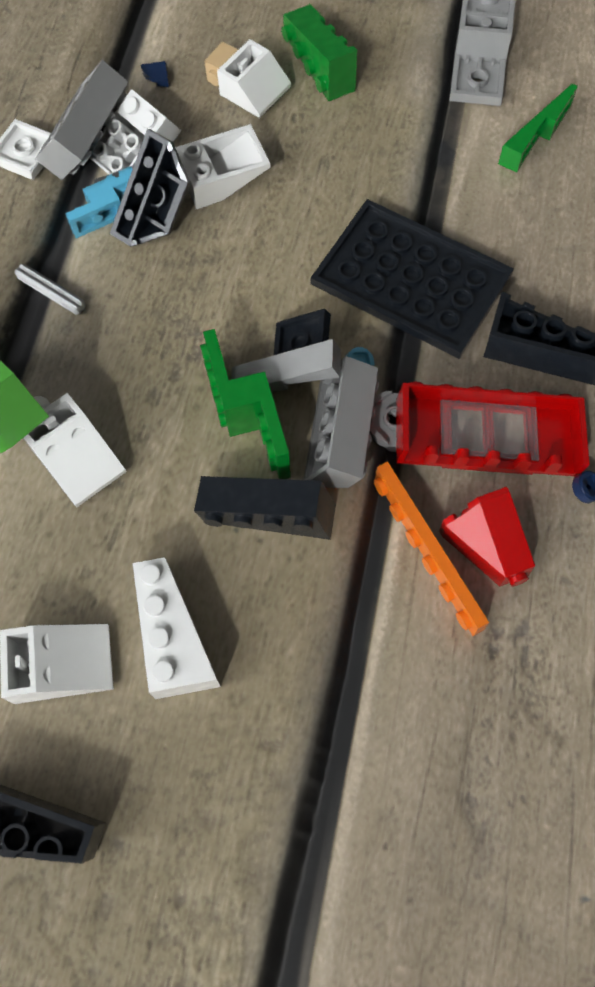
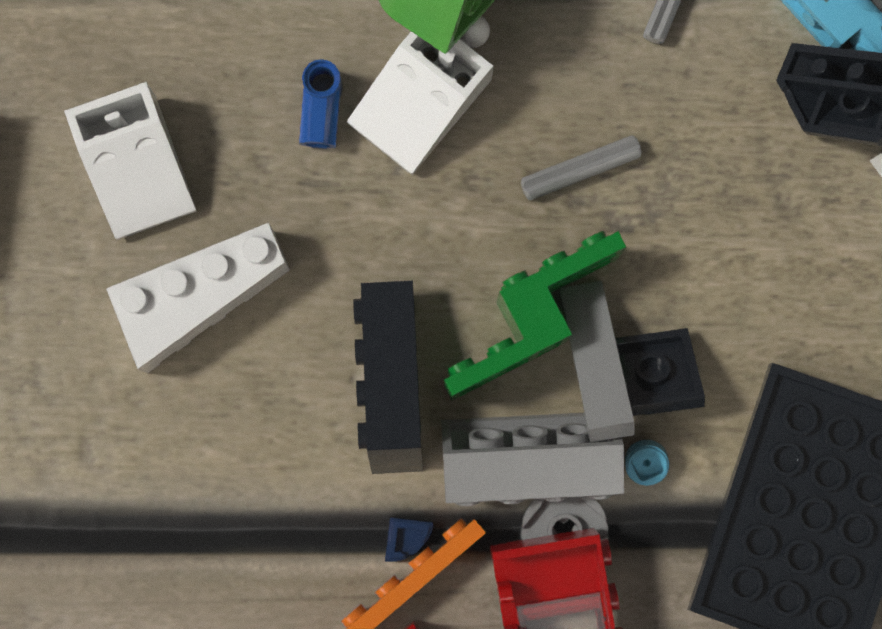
camera: 75 degrees right, 15 degrees up
(59, 519) = (319, 108): none -> blue piece
(153, 366) = (581, 167): none -> light grey axle
(380, 523) = (406, 538): none -> dark blue tile

